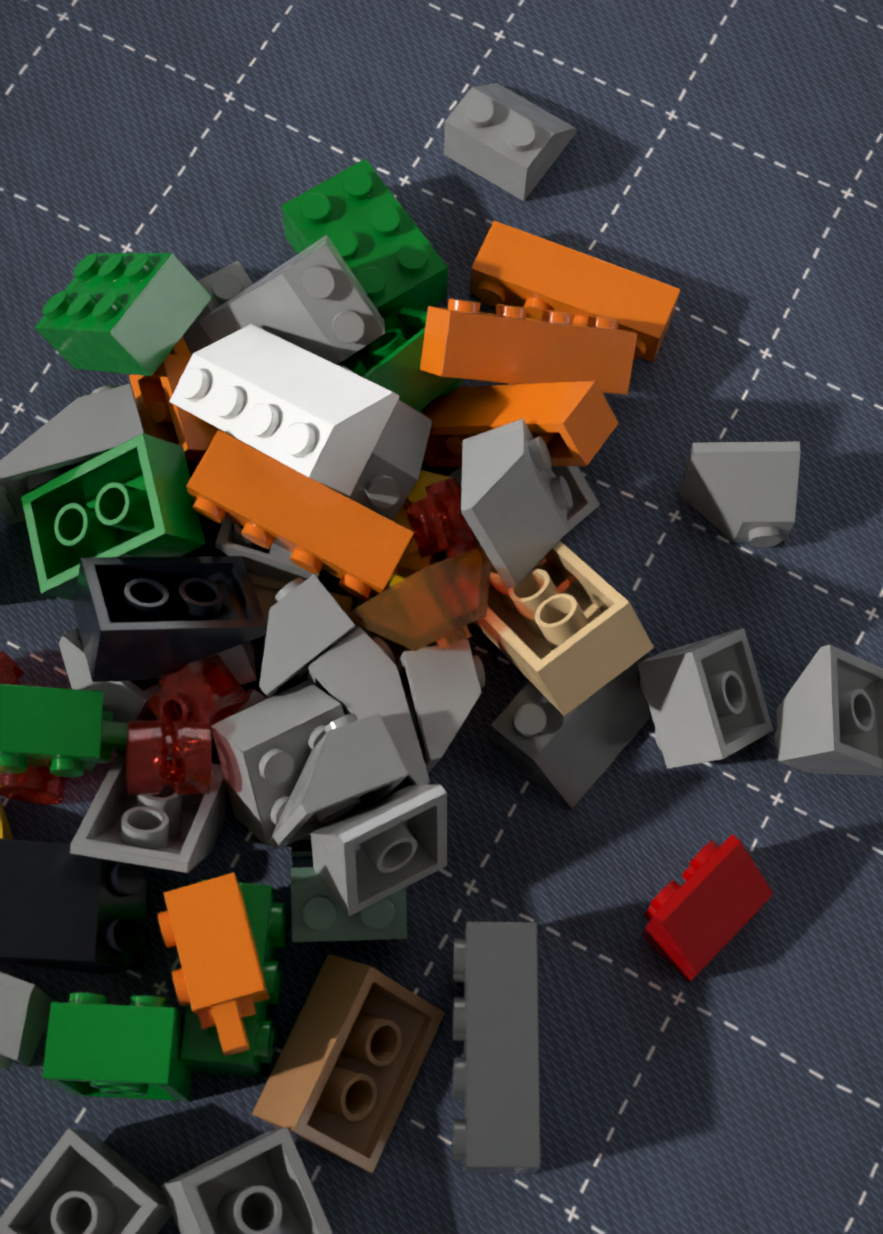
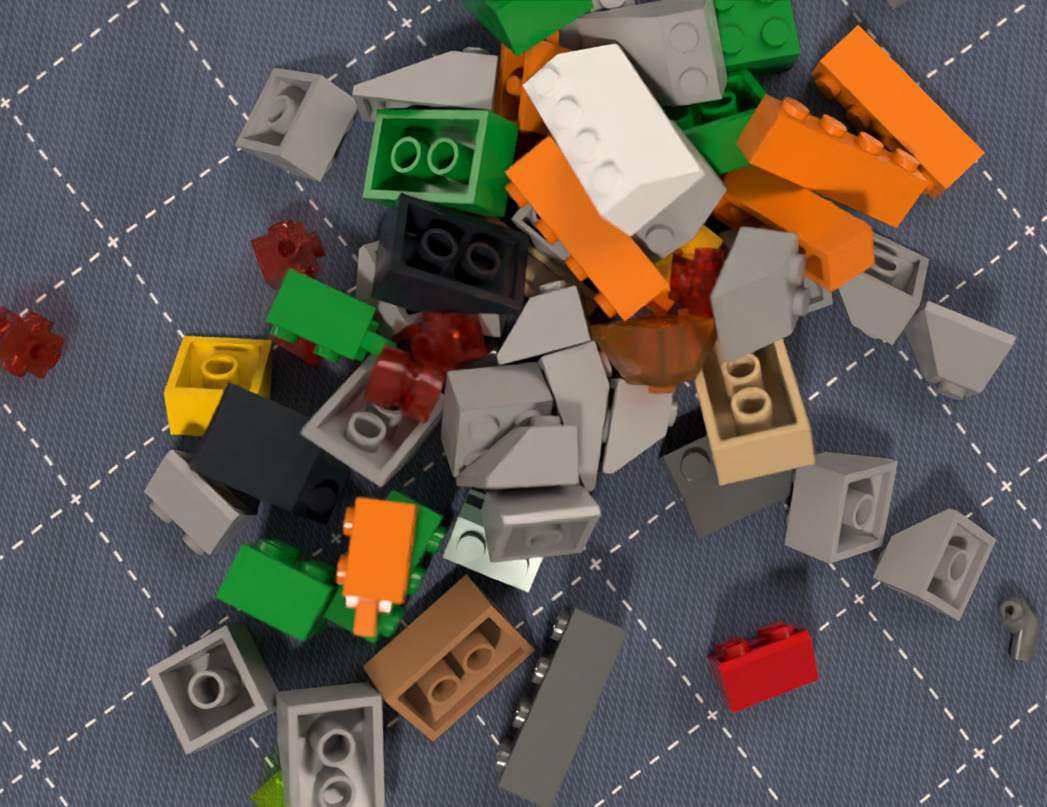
camera: 25 degrees right, 15 degrees up
(644, 466) = (888, 292): none -> light grey slope

